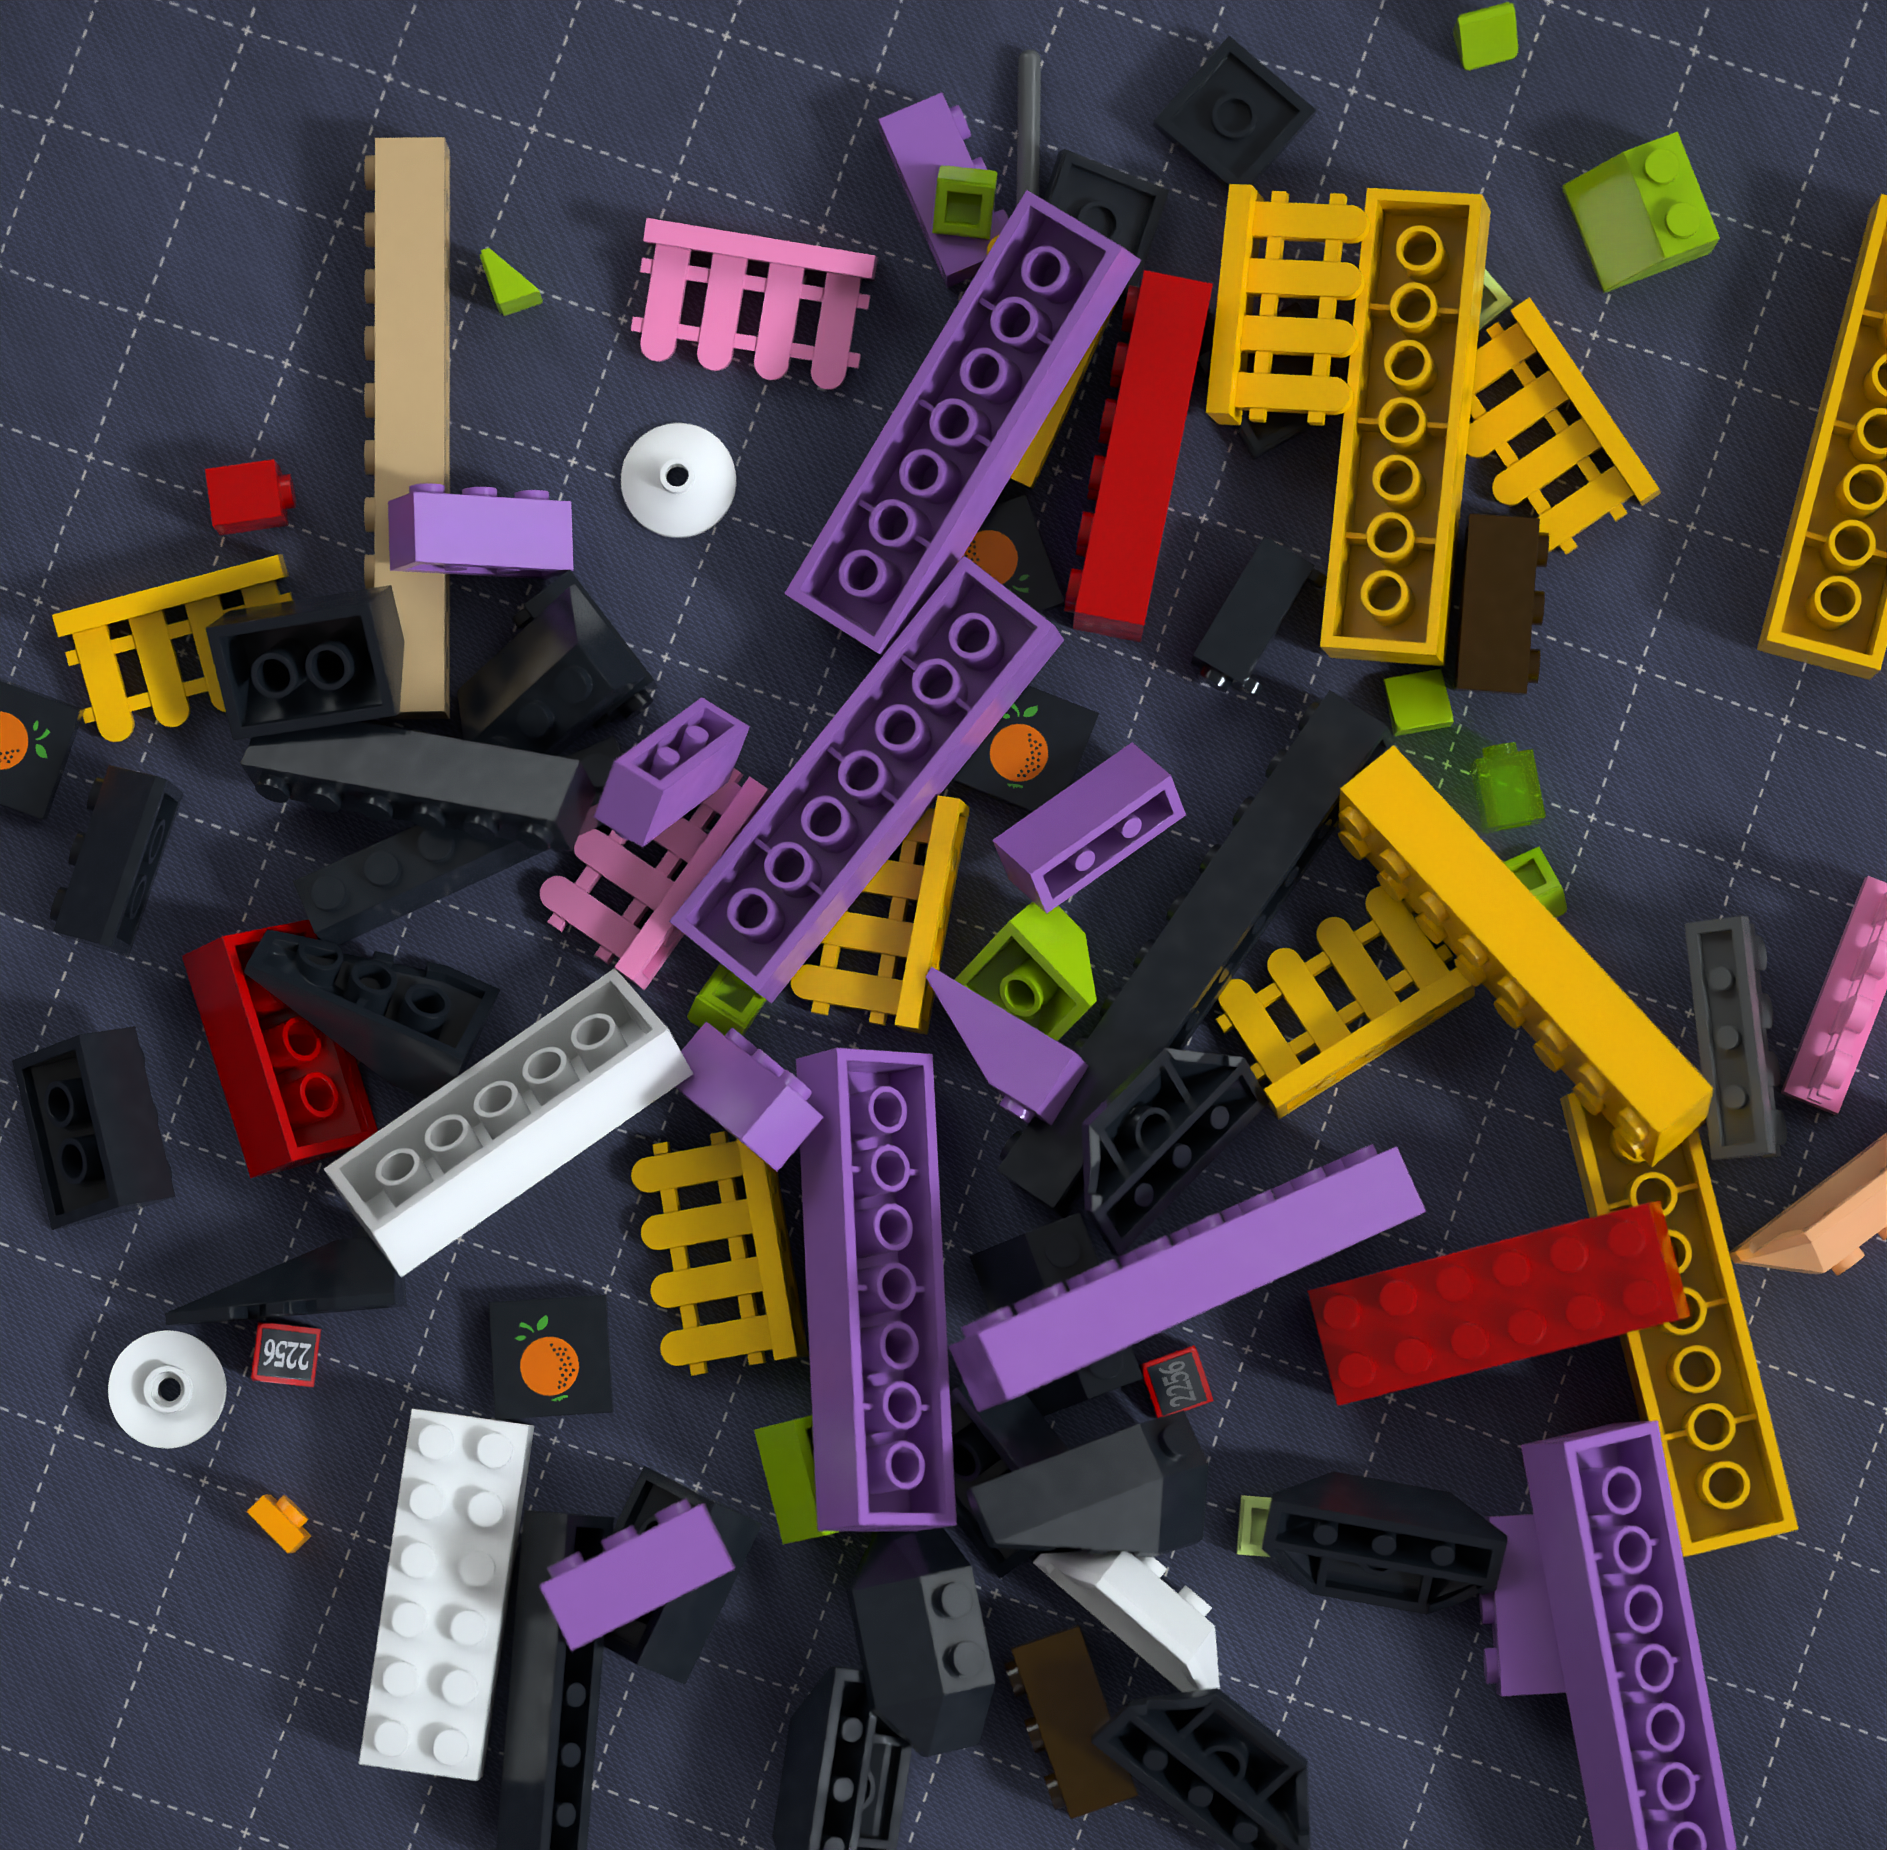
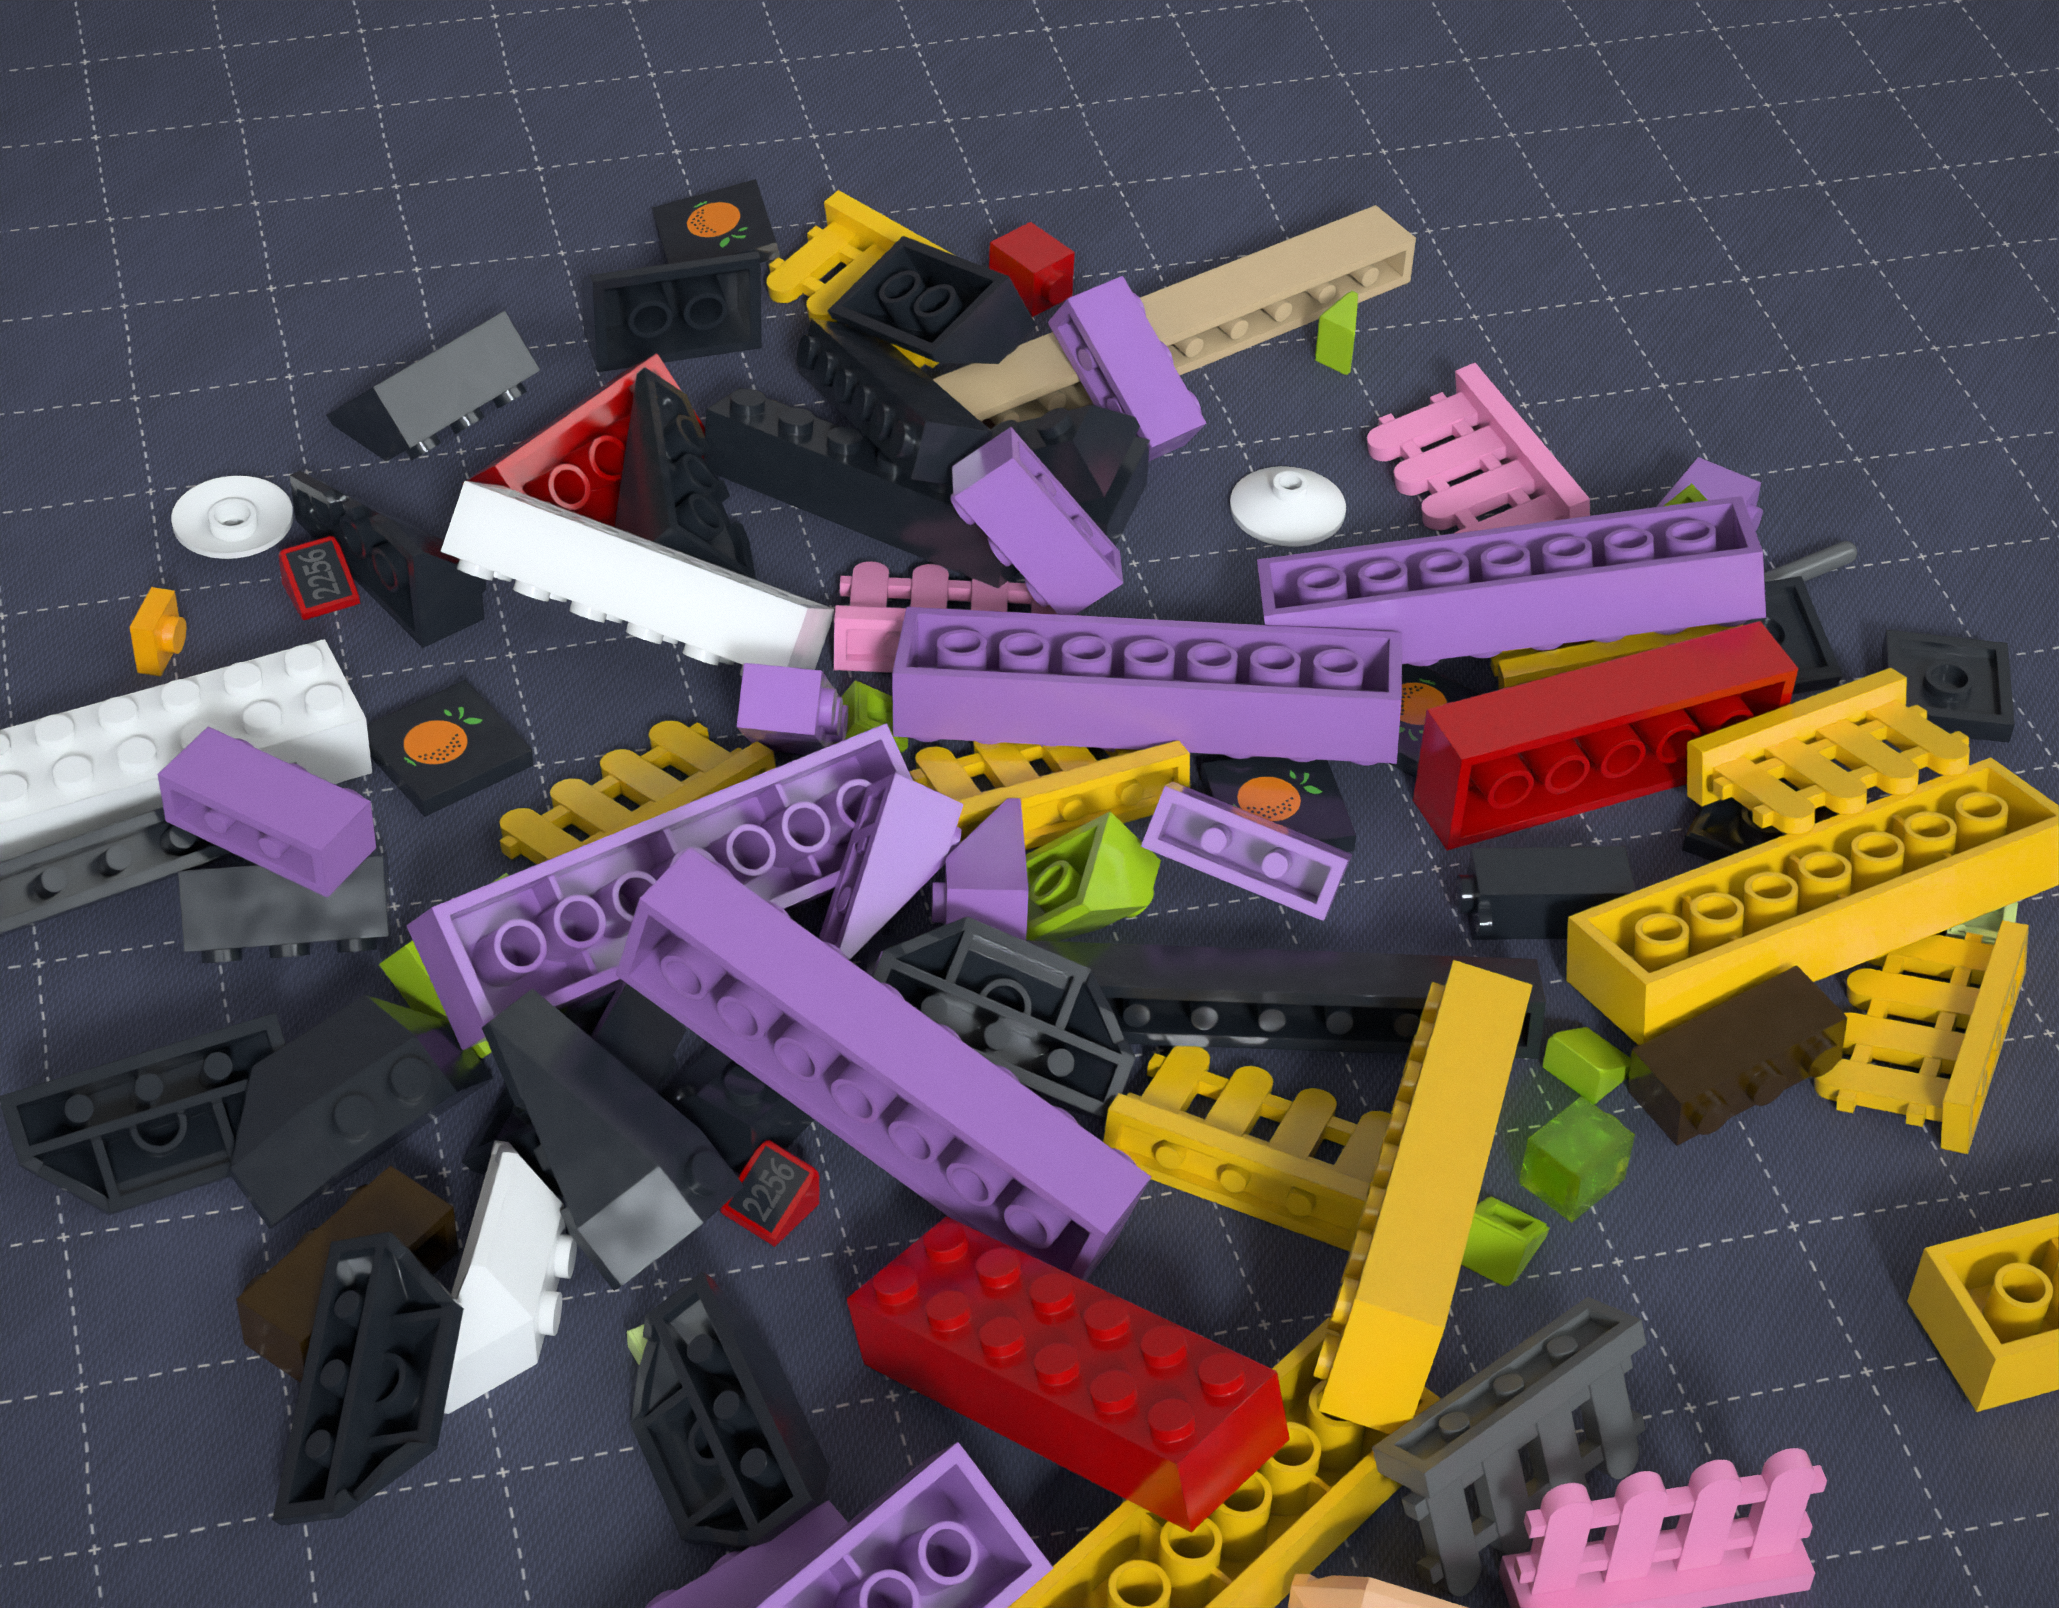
camera: 50 degrees right, 40 degrees down
(957, 1126) = (892, 852): none -> slope

